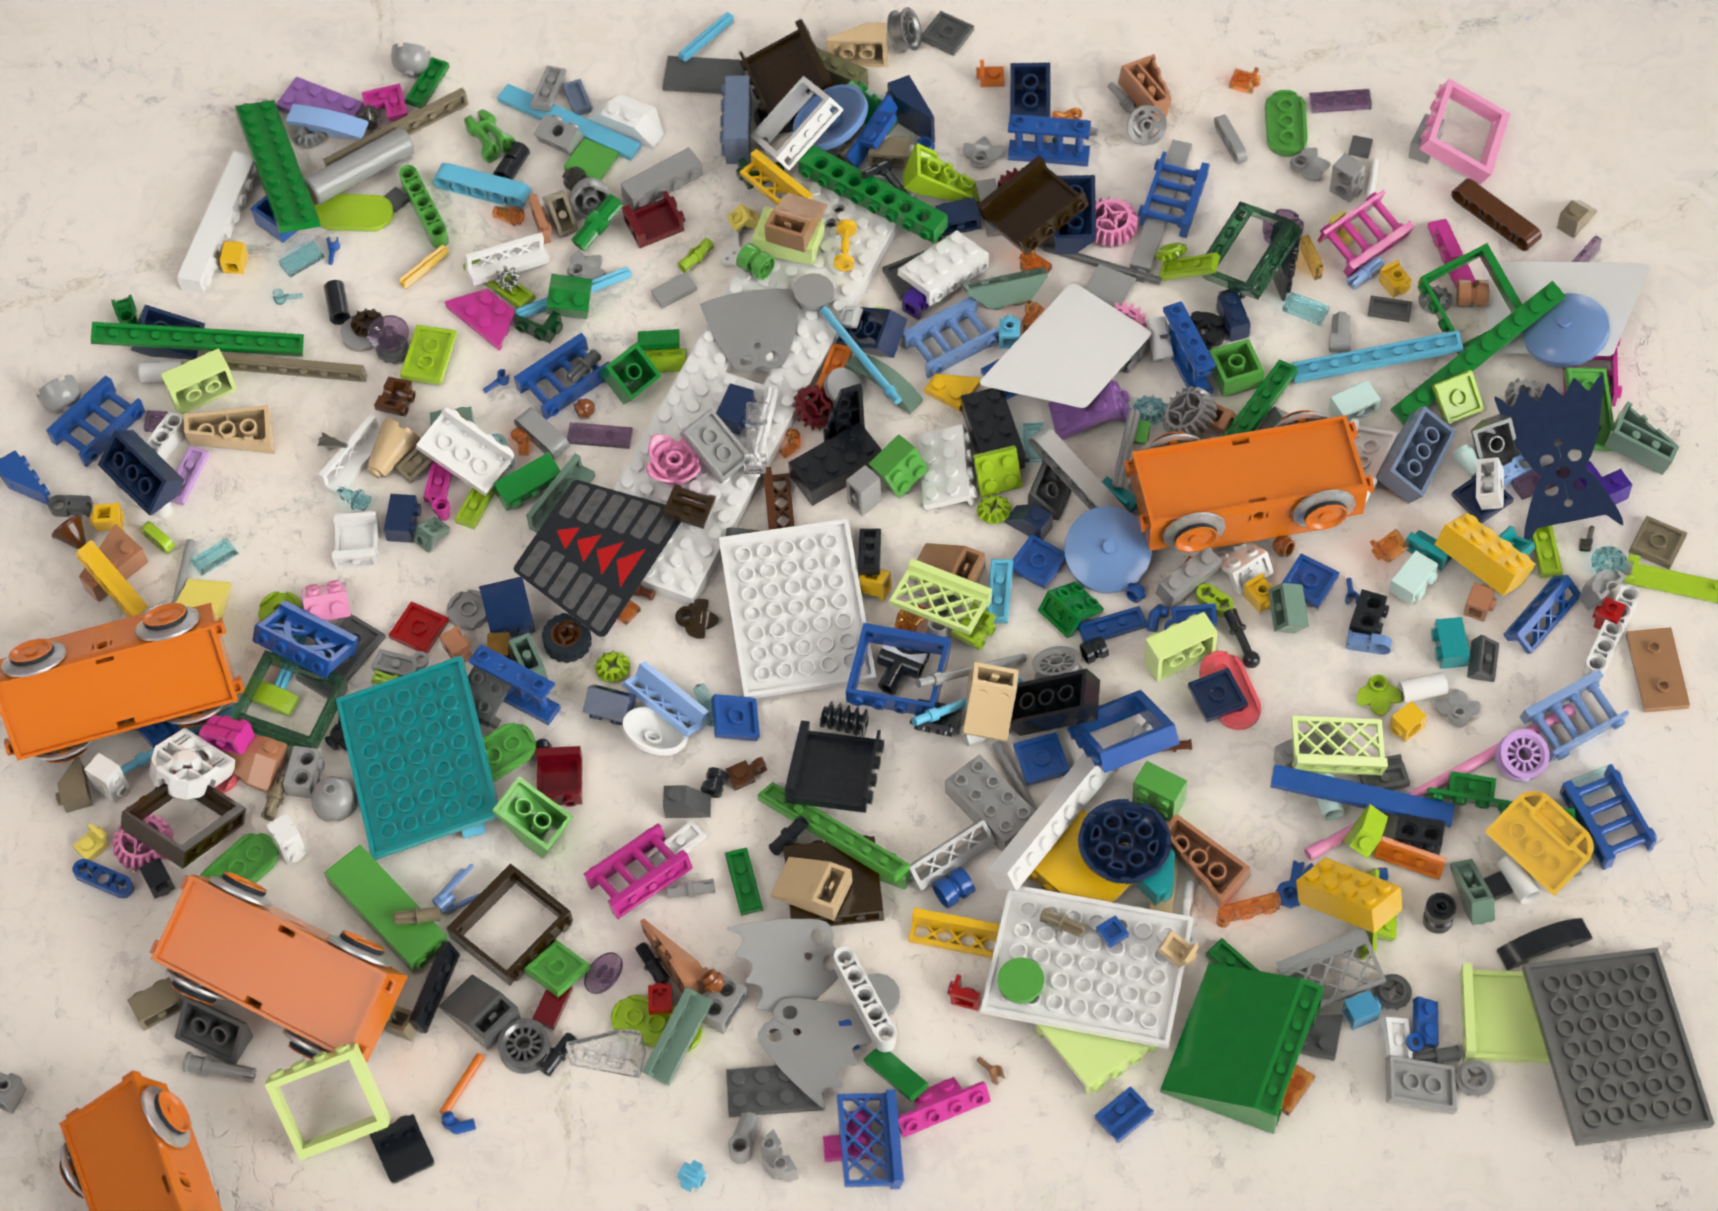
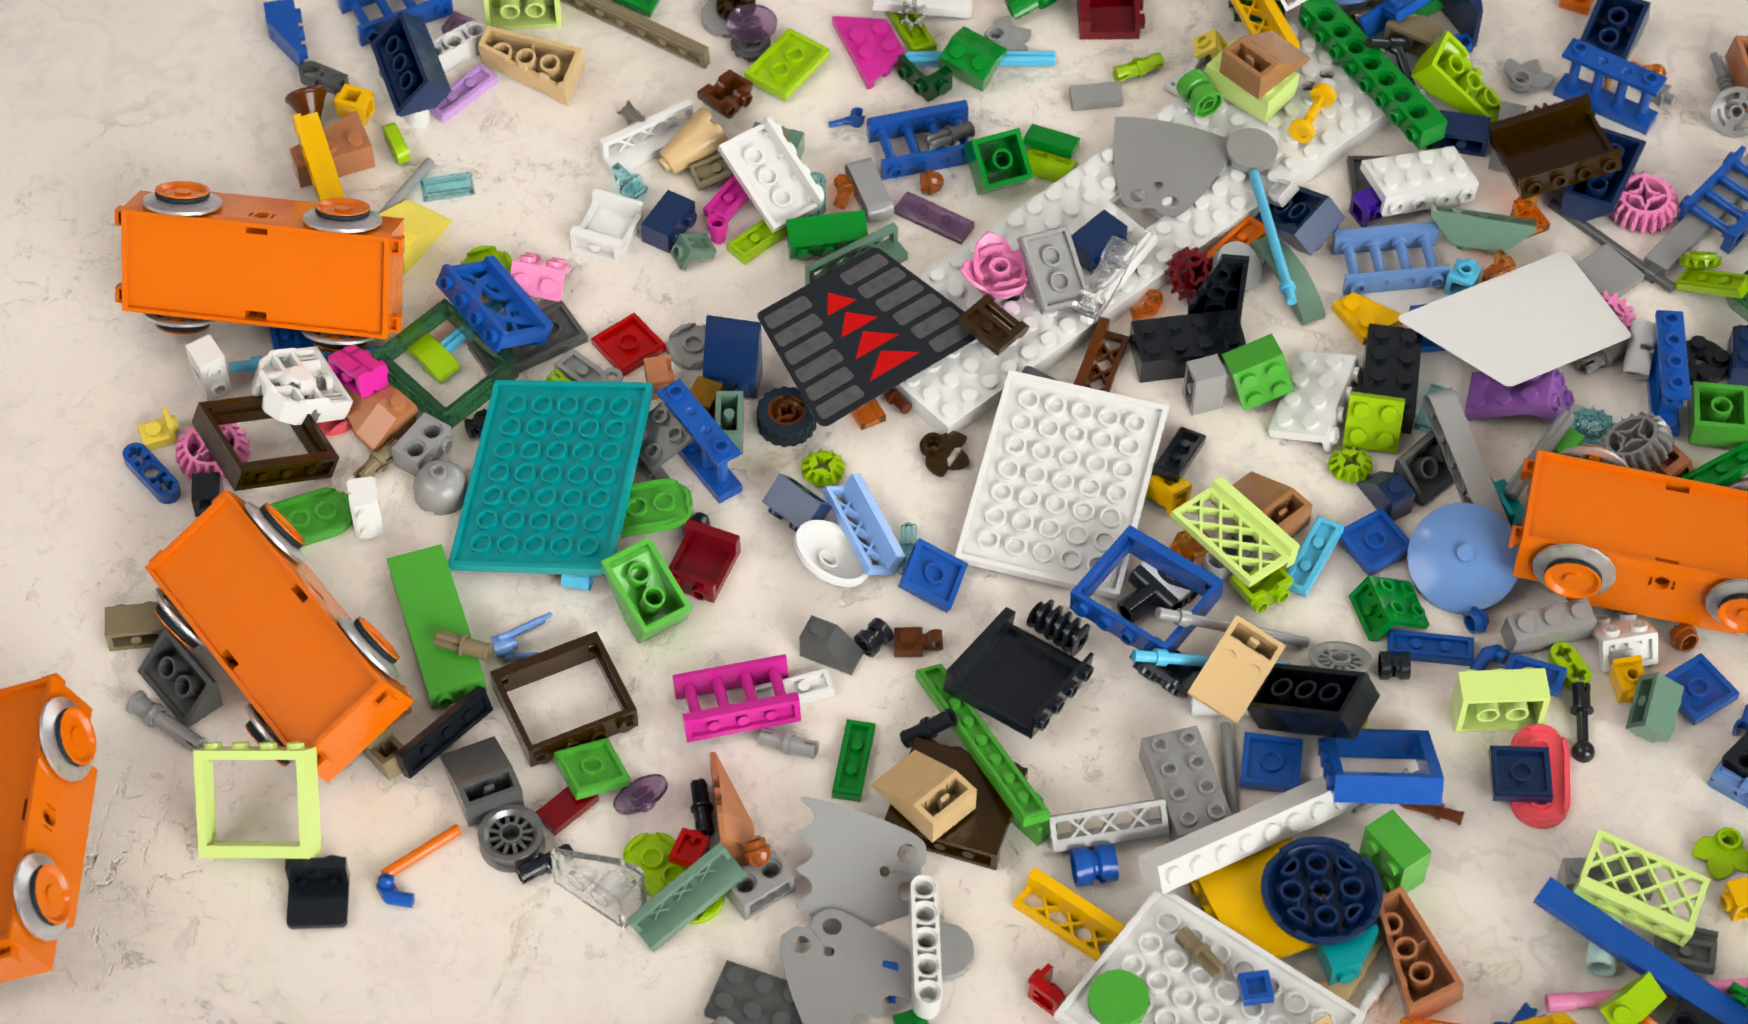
camera: 20 degrees right, 5 degrees down
(74, 788) = (169, 367): dark tan slope -> none

